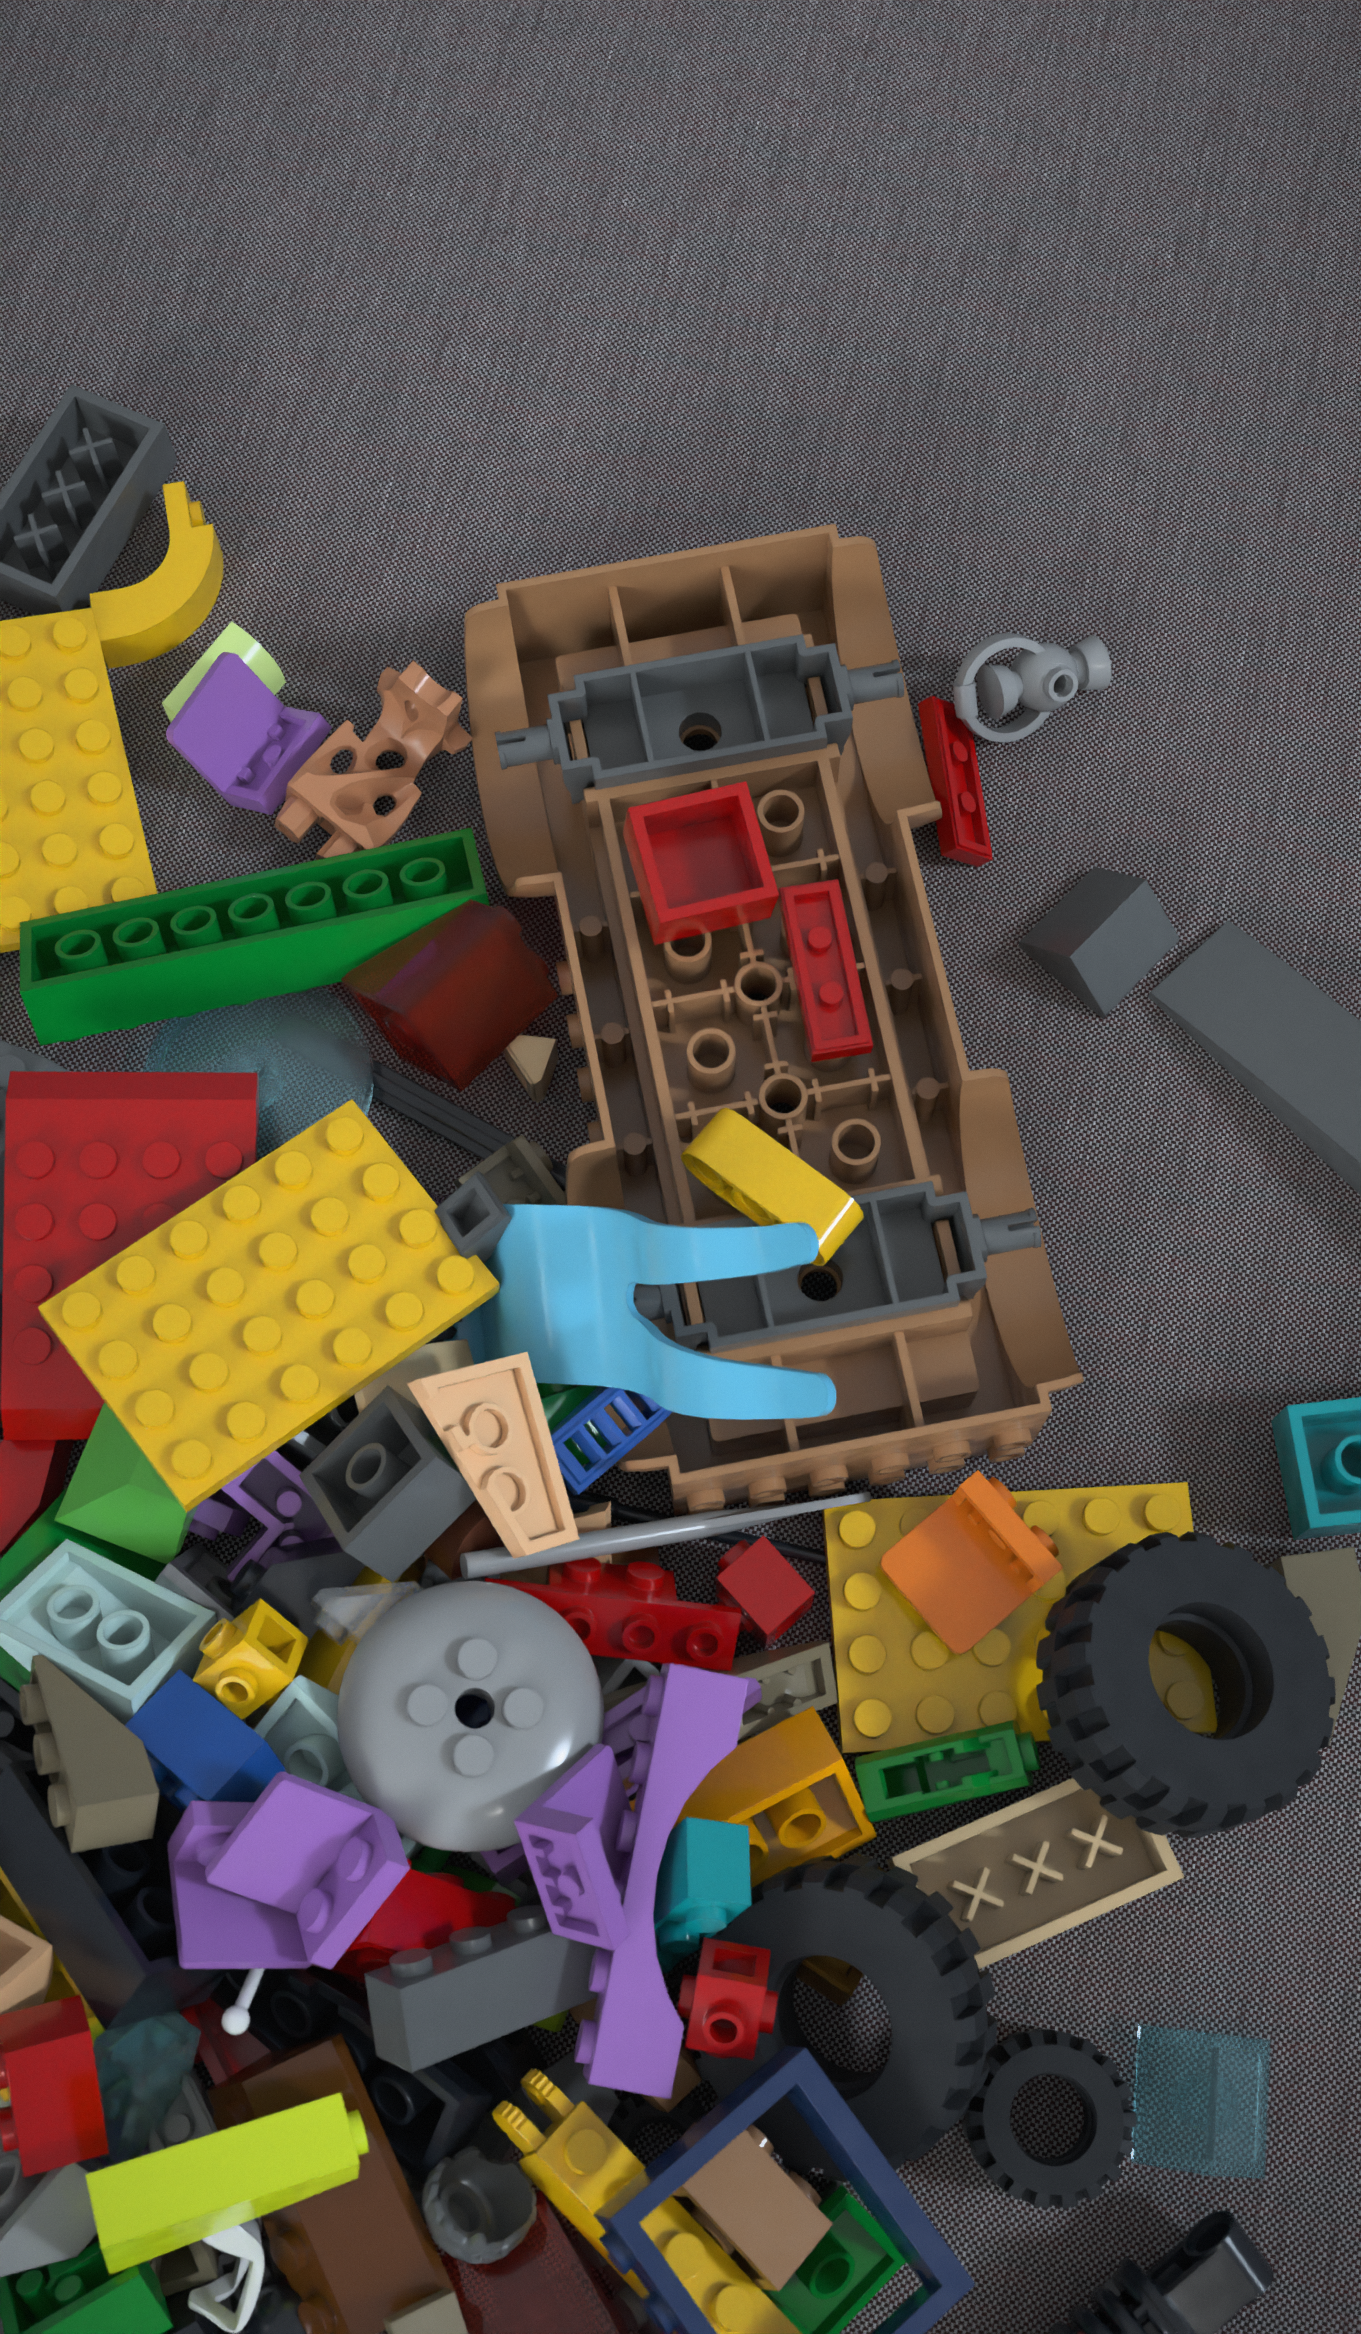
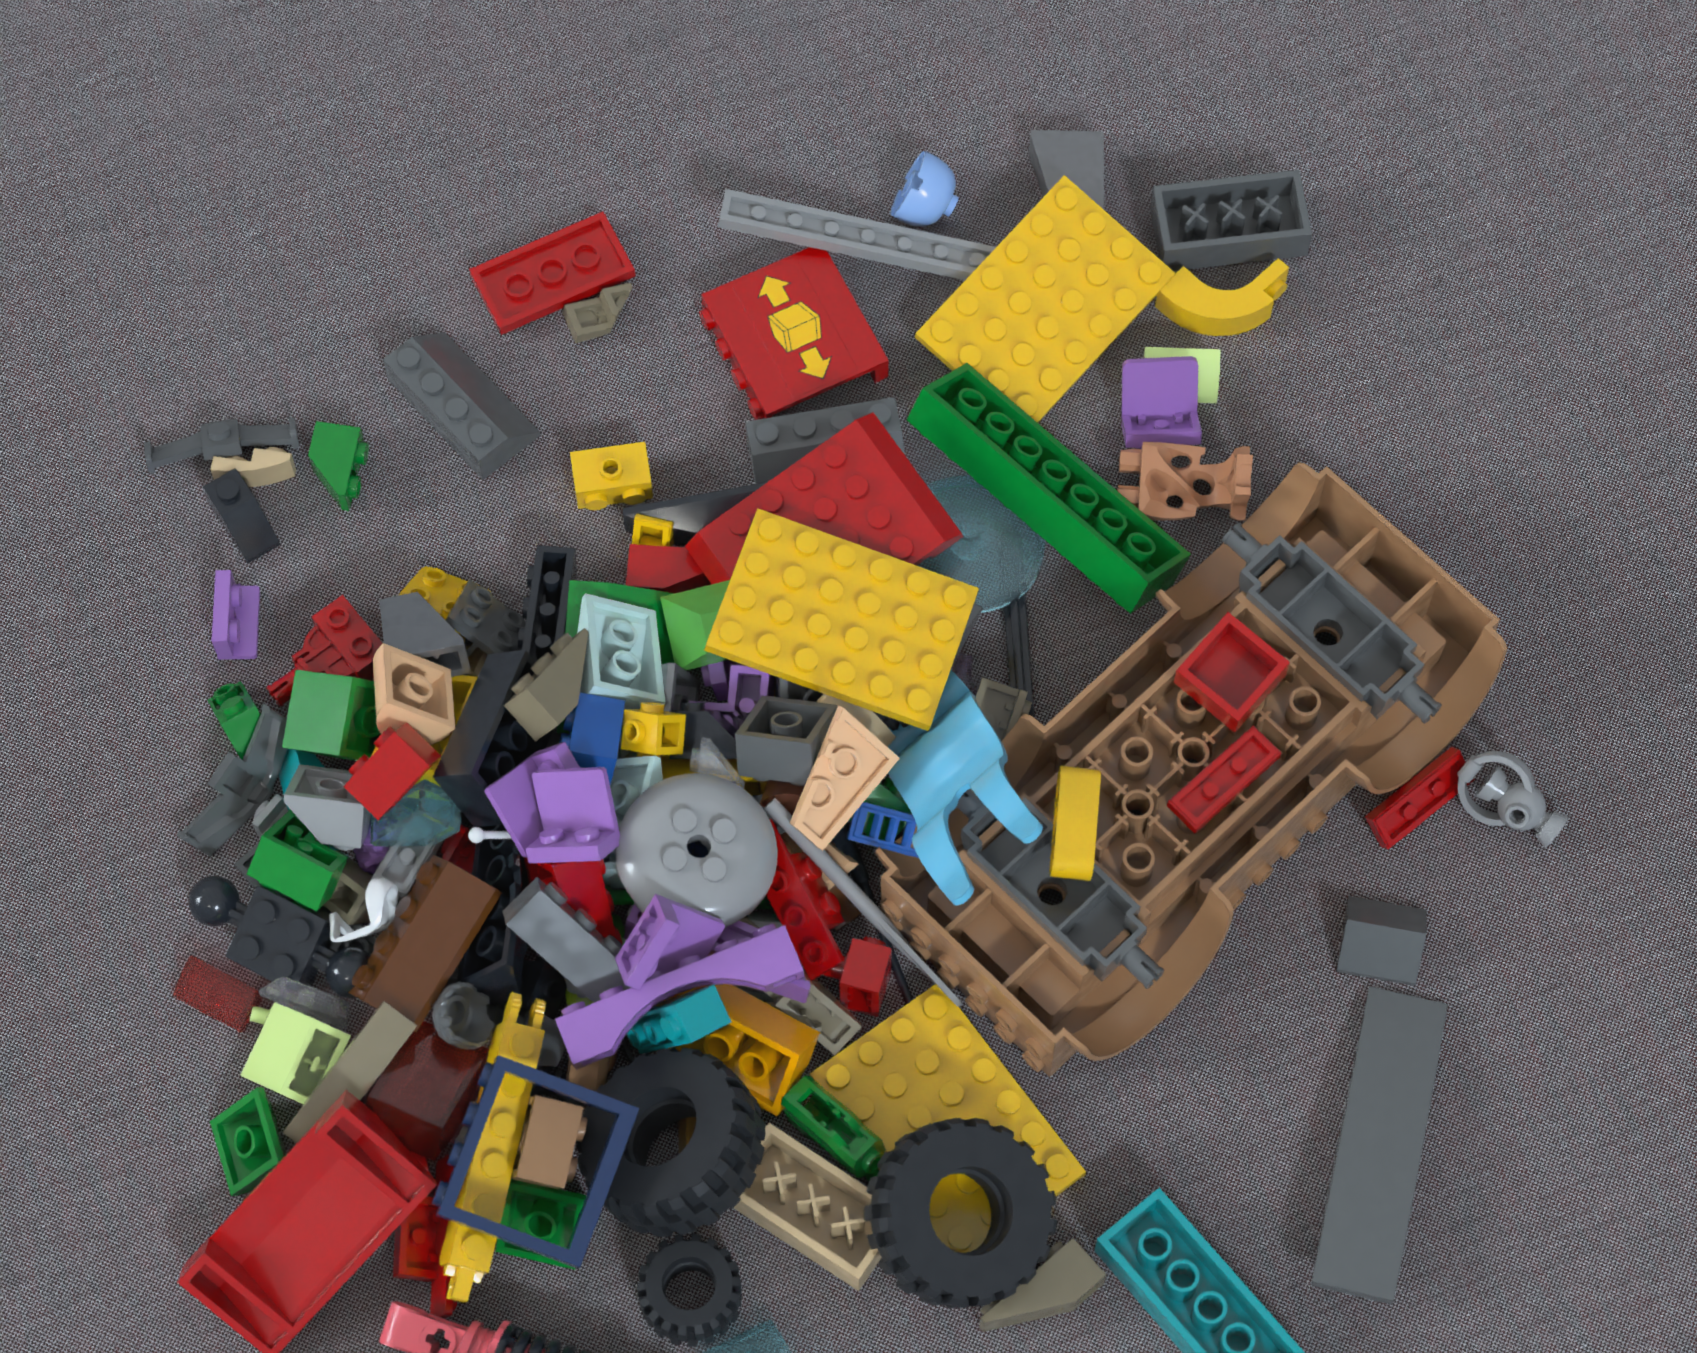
camera: 55 degrees right, 5 degrees down
(223, 2180) = (399, 875): neon yellow slope -> none
(454, 992) = (1086, 606): clear red slope -> none
(474, 1218) = (955, 690): dark grey slope -> none
(533, 1063) = (1079, 676): tan slope -> none
(728, 2000) = (639, 1066): red brick -> none
(971, 1563) = (952, 1071): orange bracket -> none

